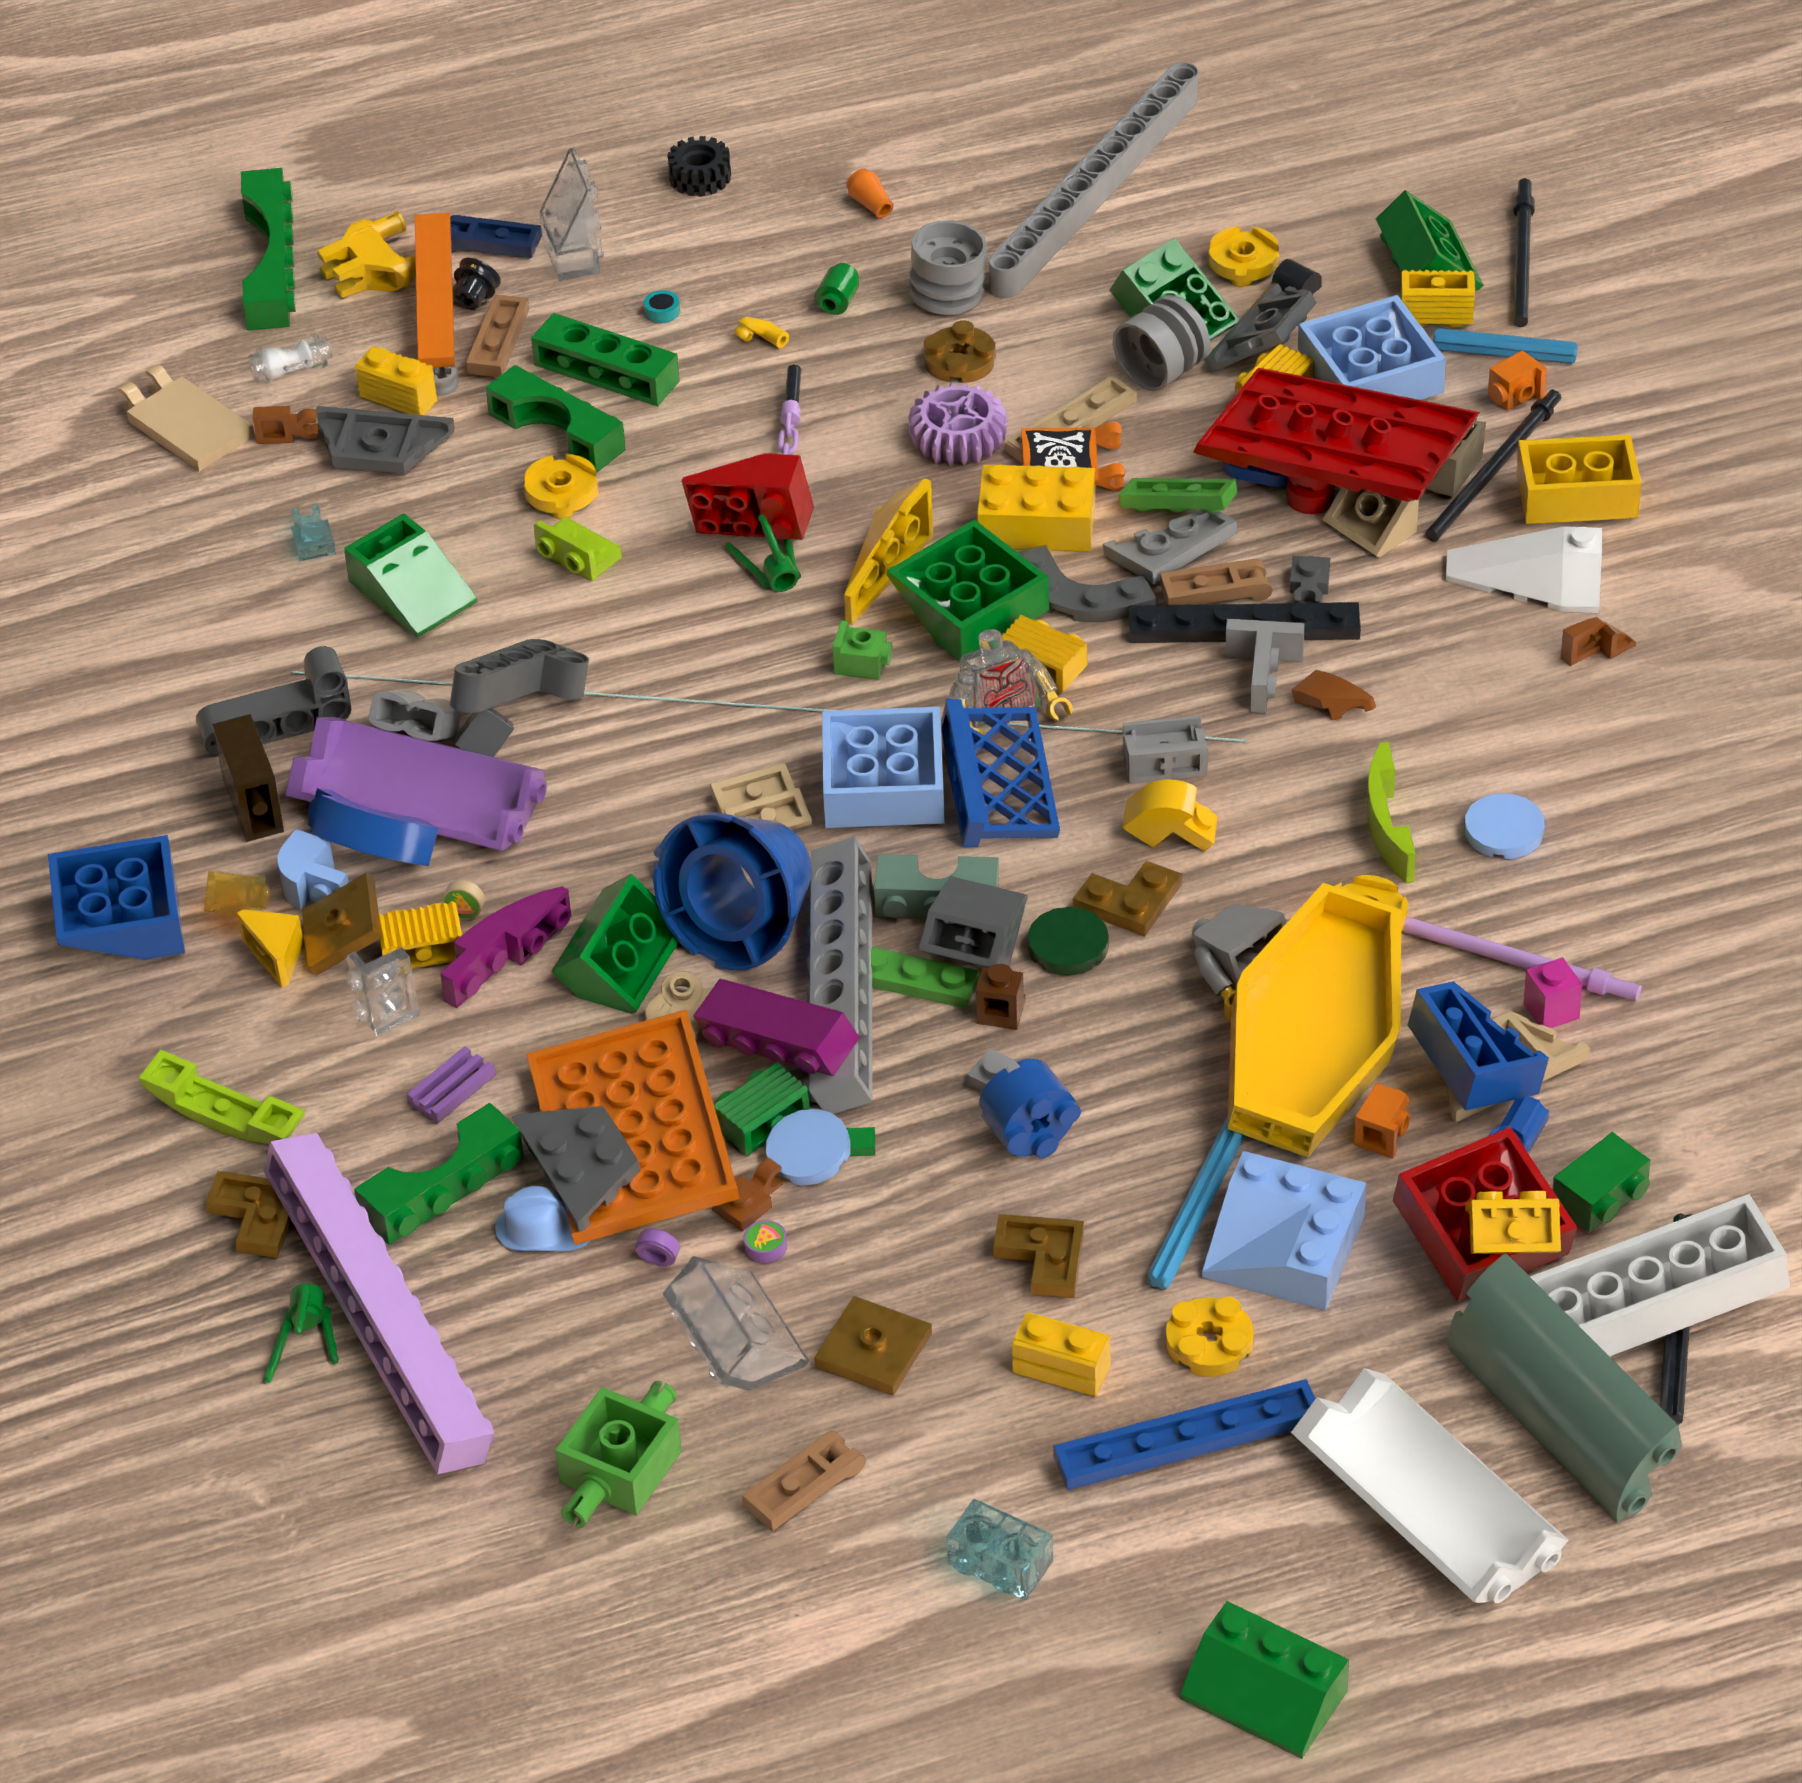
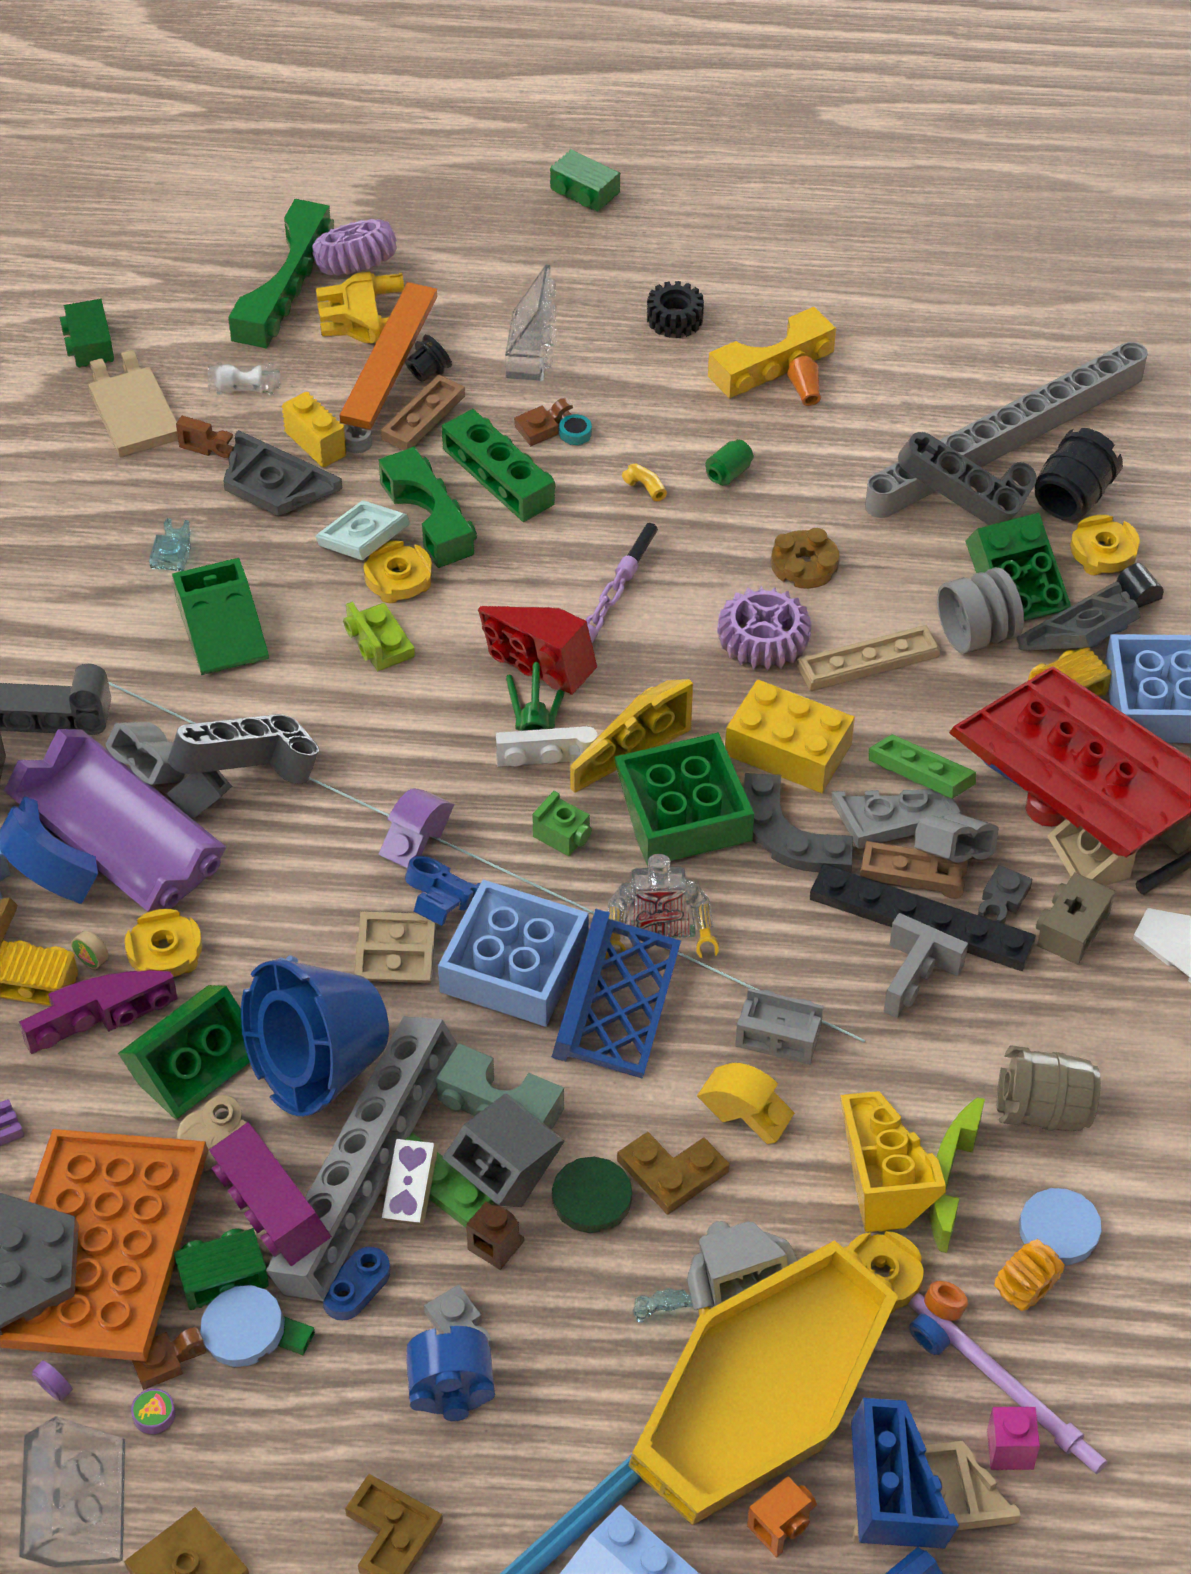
camera: 20 degrees right, 5 degrees up
(94, 363) = (87, 331): none -> green brick
(333, 199) = (354, 247): none -> lavender gear
(494, 236) = (469, 320): dark blue plate -> none
(503, 458) = (362, 530): none -> light aqua plate
(521, 856) = (158, 925): none -> yellow plate
(533, 70) = (584, 180): none -> green brick
(624, 312) = (542, 424): none -> dark orange plate
(720, 691) = (413, 821): none -> medium lavender brick
(780, 742) = (442, 889): none -> blue piece
(800, 199) = (742, 367): none -> yellow arch
(803, 590) = (542, 745): none -> white plate
(895, 1073) = (359, 1281): none -> blue plate
(896, 982) = (410, 1182): none -> tile
(947, 267) = (829, 474): light grey wheel -> none
(1059, 652) = (726, 885): yellow brick -> none
(1075, 449) = (851, 690): flag -> none
(1084, 233) = (926, 456): none -> dark grey beam
(1184, 999) = (660, 1300): none -> clear light blue piece
(1188, 196) = (1077, 474): none -> black piece
(1245, 540) = (956, 837): none -> light grey brick
(1328, 829) = (889, 1166): none -> yellow wedge
(1331, 692) = (964, 1022): dark orange slope -> none
(1387, 576) = (1075, 917): none -> dark tan brick
(1436, 913) = (946, 1300): none -> orange tile
(1436, 943) = (929, 1334): none -> blue tile
(1439, 717) = (1048, 1090): none -> dark tan piece
(1501, 865) = (1029, 1275): none -> light orange gear

